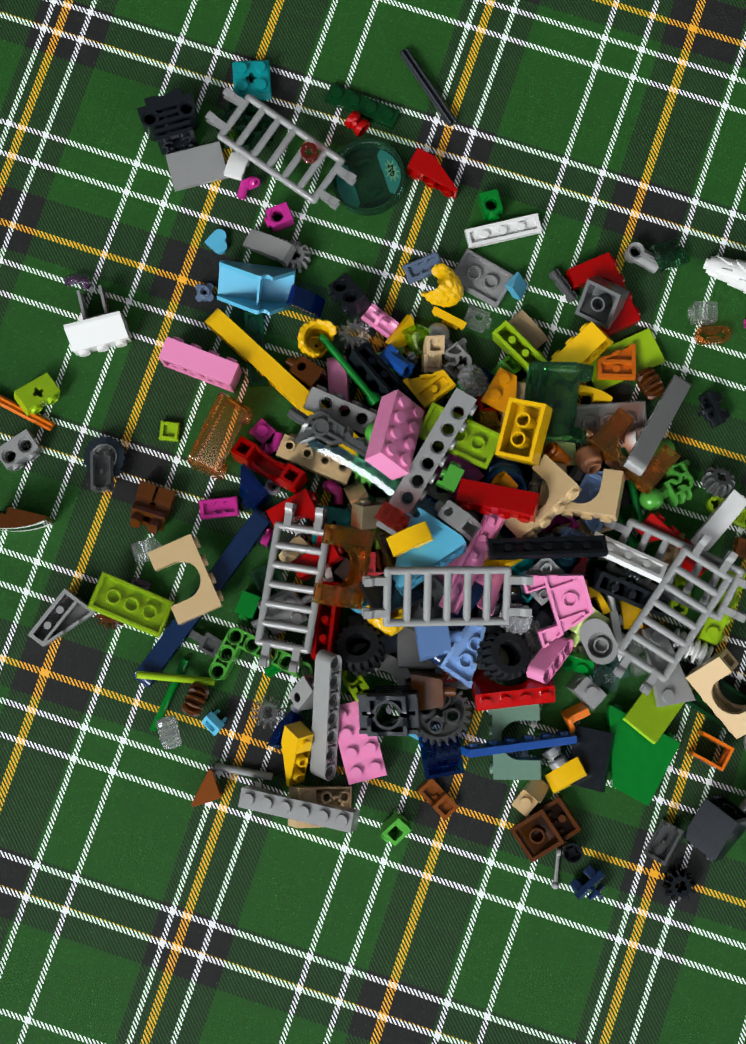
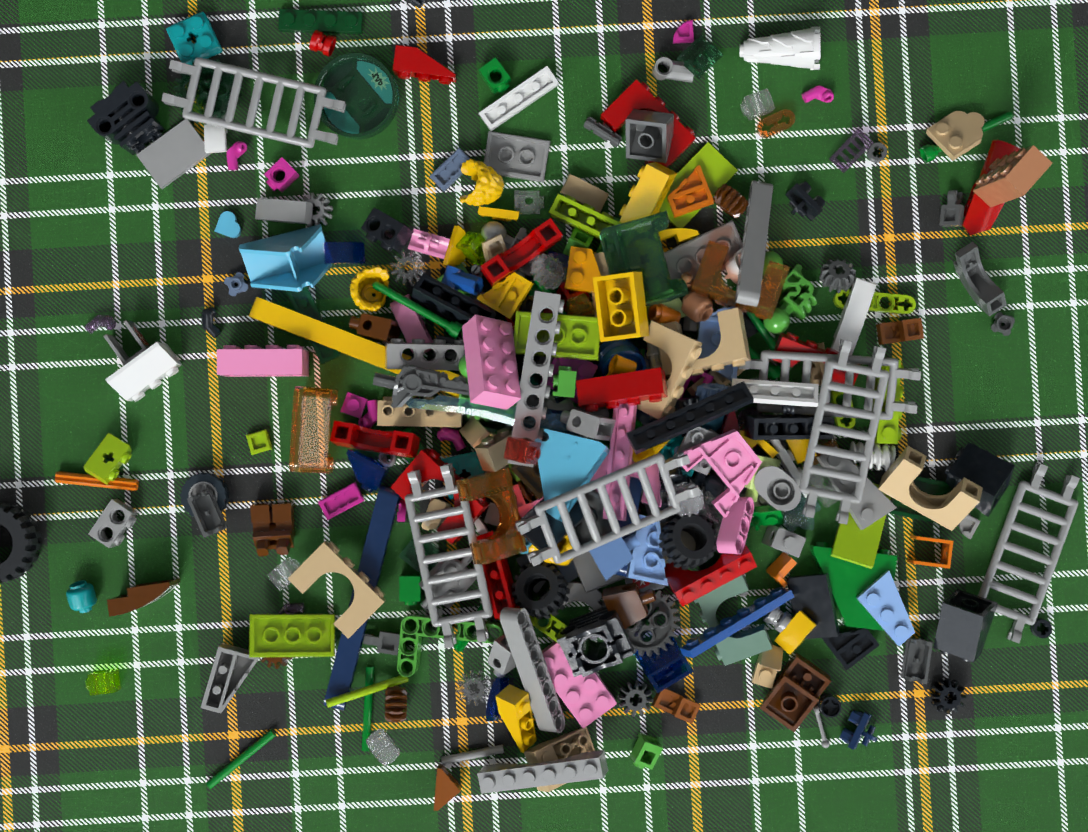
camera: 20 degrees left, 5 degrees up
(43, 695) = (241, 759): none -> green bar
(169, 310) = (207, 322): none -> black arm
(213, 723) = (423, 719): medium azure tile -> none
(306, 157) = (287, 91): clear red bush -> none
(406, 784) = (640, 703): none -> dark grey gear
(410, 538) = (548, 466): yellow slope -> none
(445, 359) = (523, 252): none -> red arch
(516, 286) = (555, 151): medium azure slope -> none
(610, 807) = (851, 646): none -> black wing
(654, 784) = (886, 607): none -> light blue wing
(663, 231) = (684, 33): none -> dark pink tile

